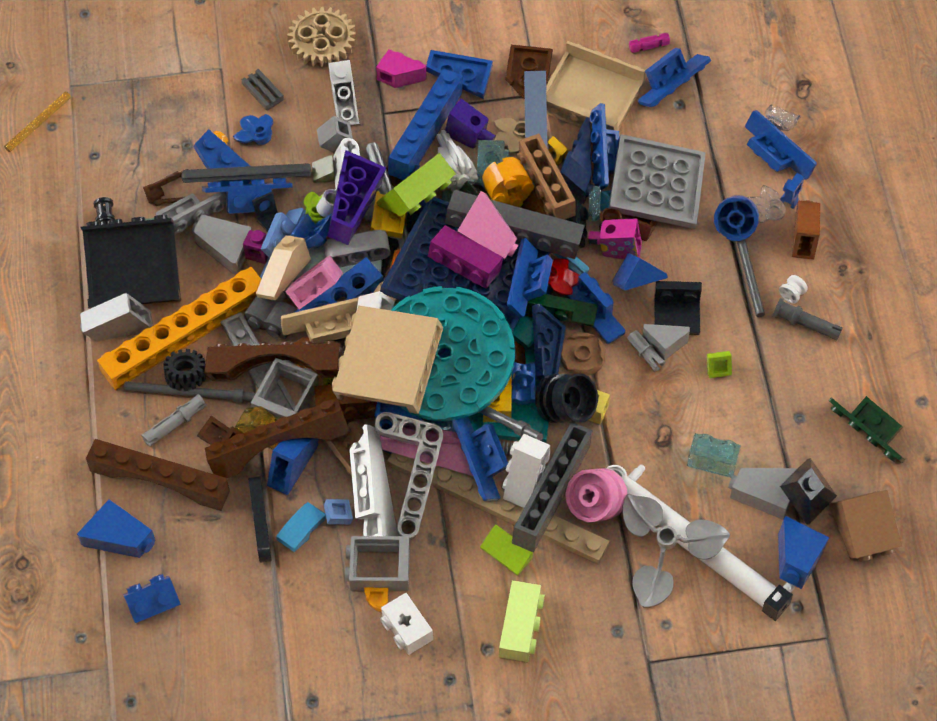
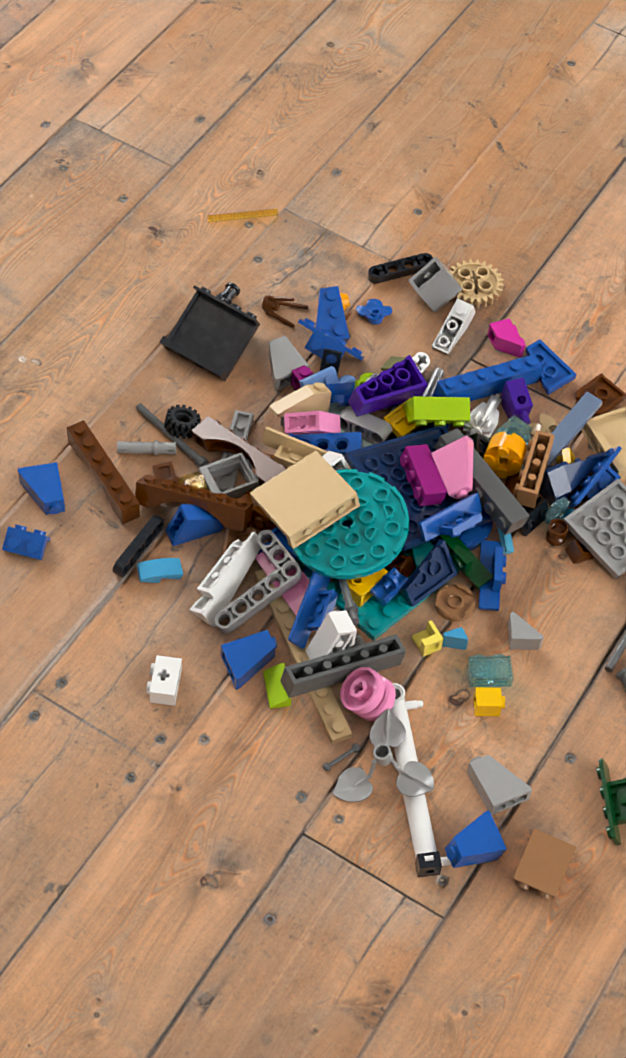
camera: 35 degrees right, 5 degrees down
(115, 319) = (171, 361): light grey slope -> none
(177, 337) = (204, 395): light orange brick -> none
(189, 209) = (275, 328): light grey bracket -> none
(236, 68) = (380, 272): none -> black beam
(246, 173) = (338, 330): dark grey axle -> none
(254, 78) = (404, 280): dark grey tile -> none
(267, 314) = (266, 419): dark grey brick -> none
(292, 63) = (435, 284): none -> light grey slope
(333, 132) = (421, 343): light grey brick -> none
(338, 511) = (191, 578): medium blue plate -> none
(376, 597) = (165, 649): light orange tile -> none
(378, 544) = (199, 642): light grey window -> none
(456, 544) = (248, 656): none -> blue slope
(521, 621) = (240, 737): yellowish green brick -> none
(561, 278) = (484, 539): red plate -> none
(566, 398) = (408, 617): black wheel -> none
(617, 385) = (455, 639): none -> dark azure slope
(618, 238) = (551, 546): dark pink torso -> none
(622, 551) = (355, 748): none -> dark grey hinge
(636, 272) = (542, 575): blue slope -> none
(645, 350) = (500, 632): light grey axle -> none
(670, 393) = (490, 671): none -> clear light blue brick
(678, 304) = (552, 618): black bracket -> none
(694, 420) = (488, 701): none -> yellow brick
(713, 455) = (479, 732): clear light blue brick -> none
(719, 364) = (543, 678): lime tile -> none
(808, 491) = (523, 807): black slope -> none

